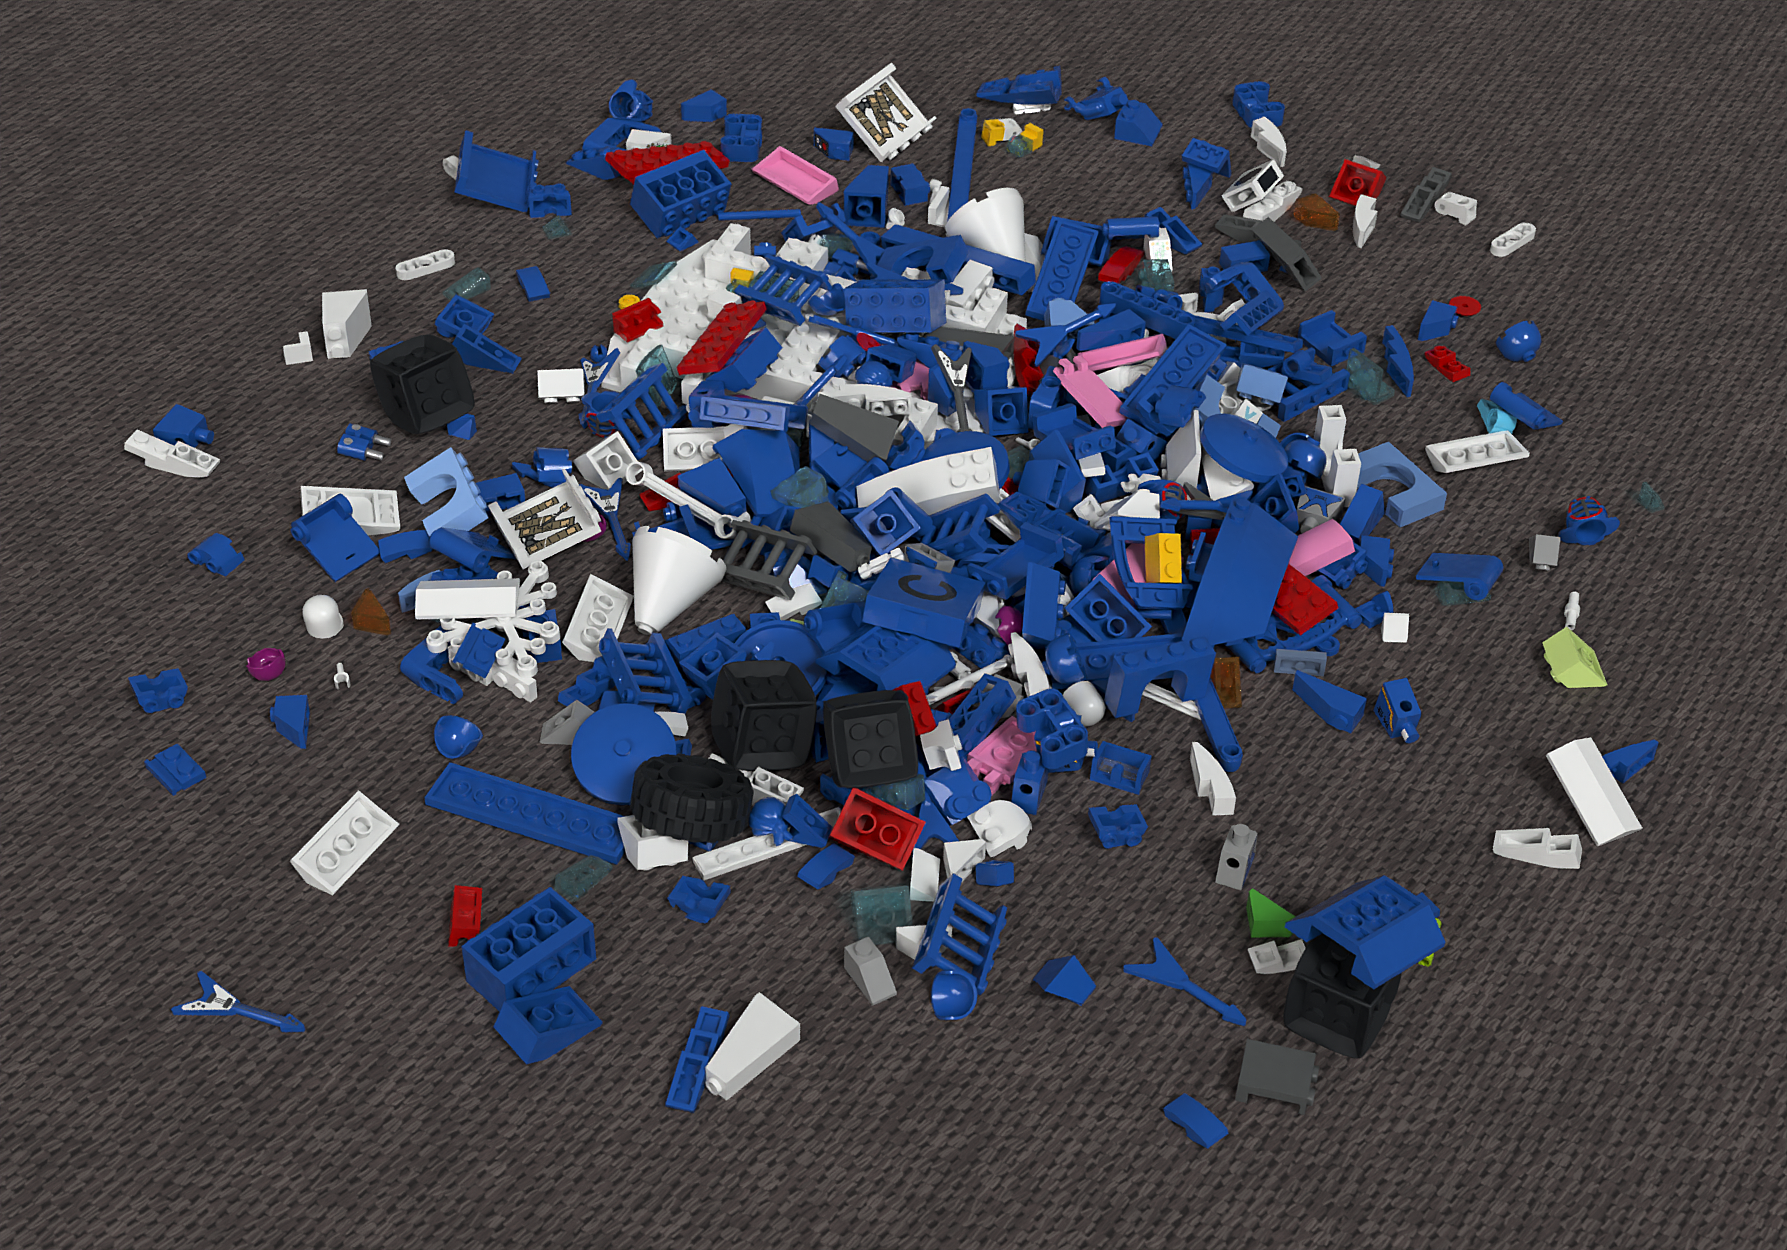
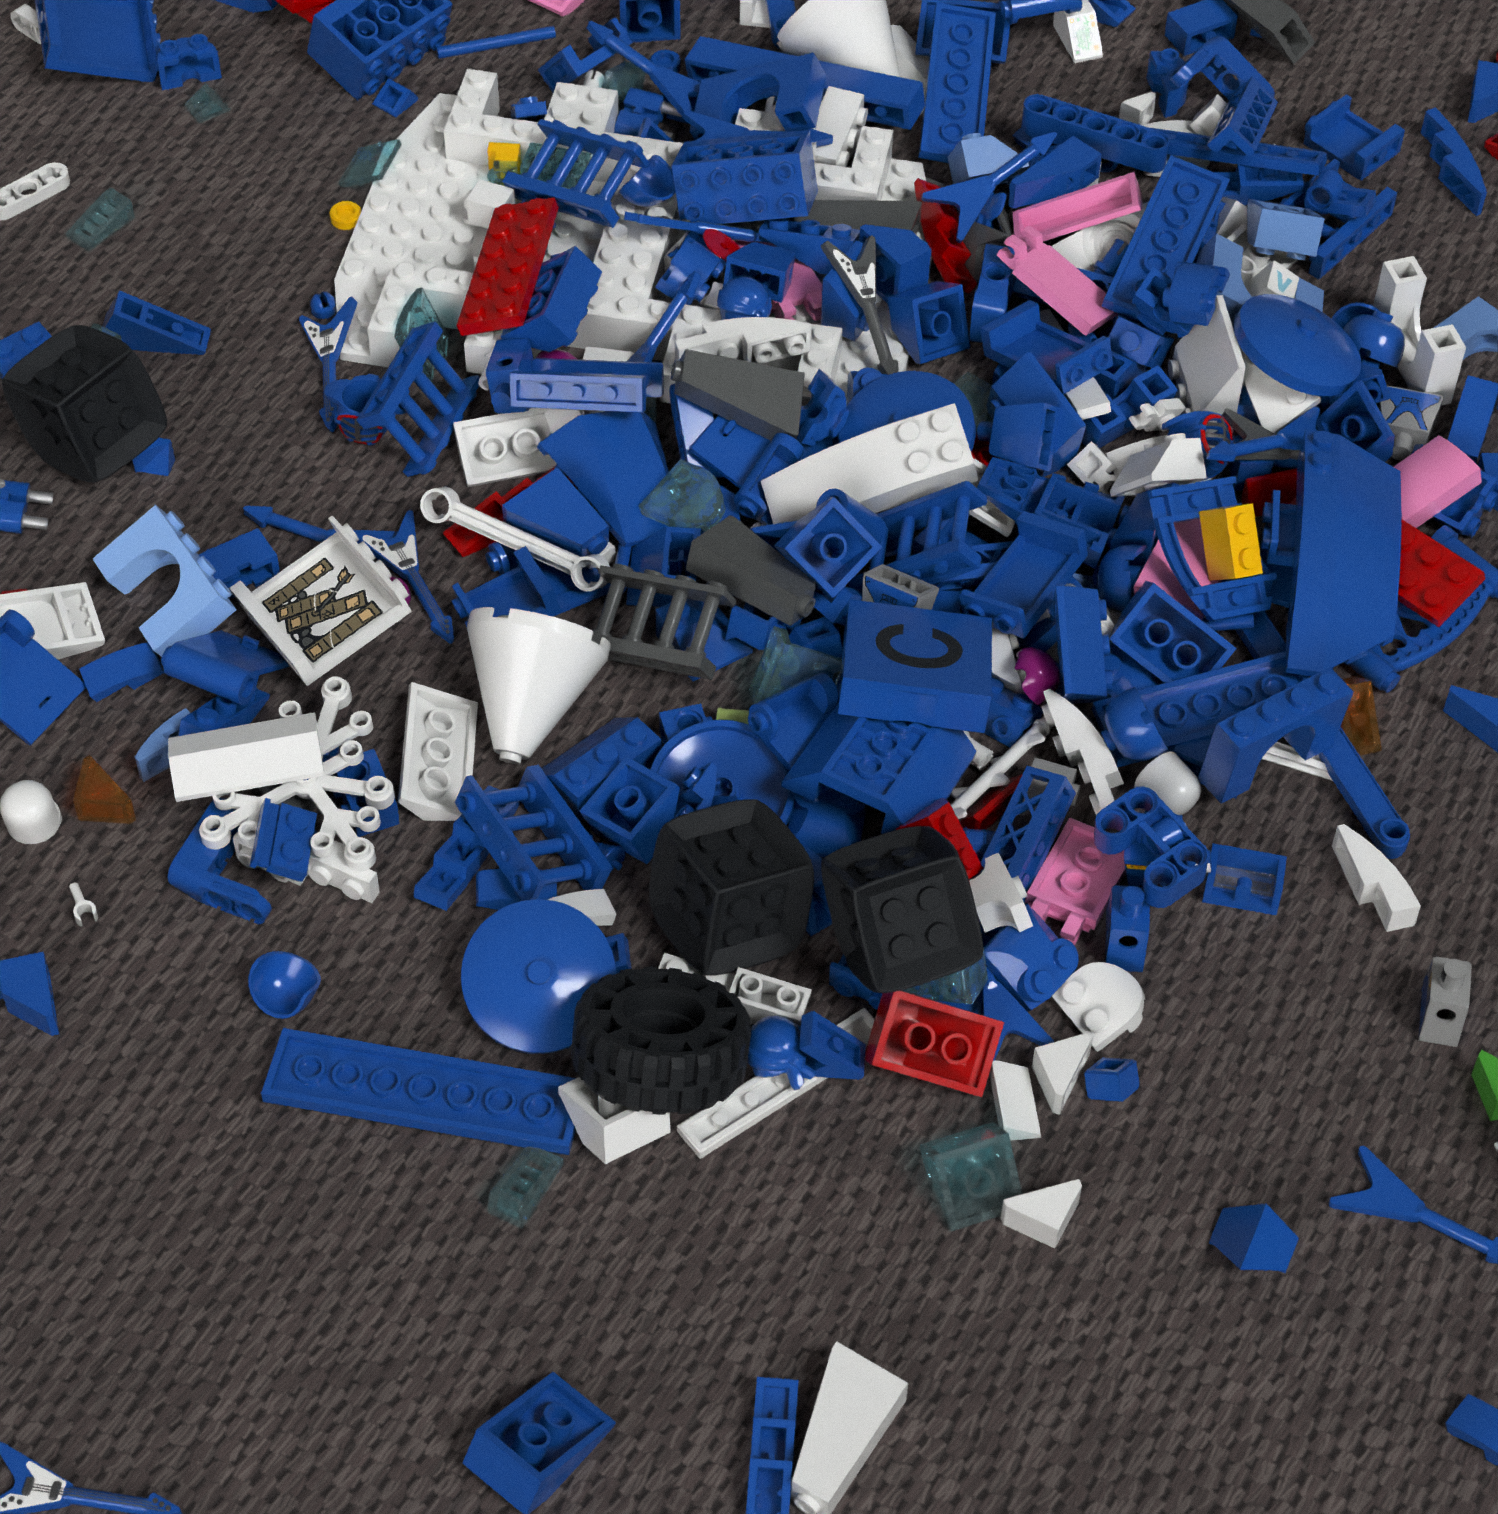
camera: 10 degrees left, 10 degrees up
(343, 844) = (161, 1191): white slope -> none
(459, 312) = (106, 272): blue slope -> none
(464, 913) = (372, 1282): red hinge -> none
(529, 950) = (485, 1332): blue brick -> none
(533, 283) = (196, 201): blue slope -> none
(551, 463) = (304, 504): blue cylinder -> none
(561, 384) = (284, 368): white slope -> none
(565, 724) = (440, 937): light grey slope -> none
(606, 461) = (384, 487): white slope -> none
(636, 320) = (369, 246): red hinge -> none
(698, 899) = (706, 1197): blue cylinder -> none
(802, 601) = (729, 675): white slope -> none
(824, 866) = (871, 1108): blue slope -> none
(869, 970) = (979, 1274): light grey slope -> none
(878, 564) = (832, 608): white axle -> none
(895, 217) = (693, 24): white plate -> none
(936, 934) = (1068, 1209): blue fence -> none
(953, 995) = (1109, 1296): blue helmet -> none
(1030, 445) = (986, 366): white hand -> none
(1119, 826) = (1267, 974): blue cylinder -> none
(1121, 264) = (1032, 59): red slope -> none
(1156, 274) = (1088, 75): clear light blue brick -> none
(1163, 295) = (1106, 103): blue bar -> none
(1305, 661) = (1448, 666): sand blue panel -> none
(1330, 646) = (1476, 635): blue tile -> none
(1367, 378) = (1422, 197): clear light blue bracket -> none

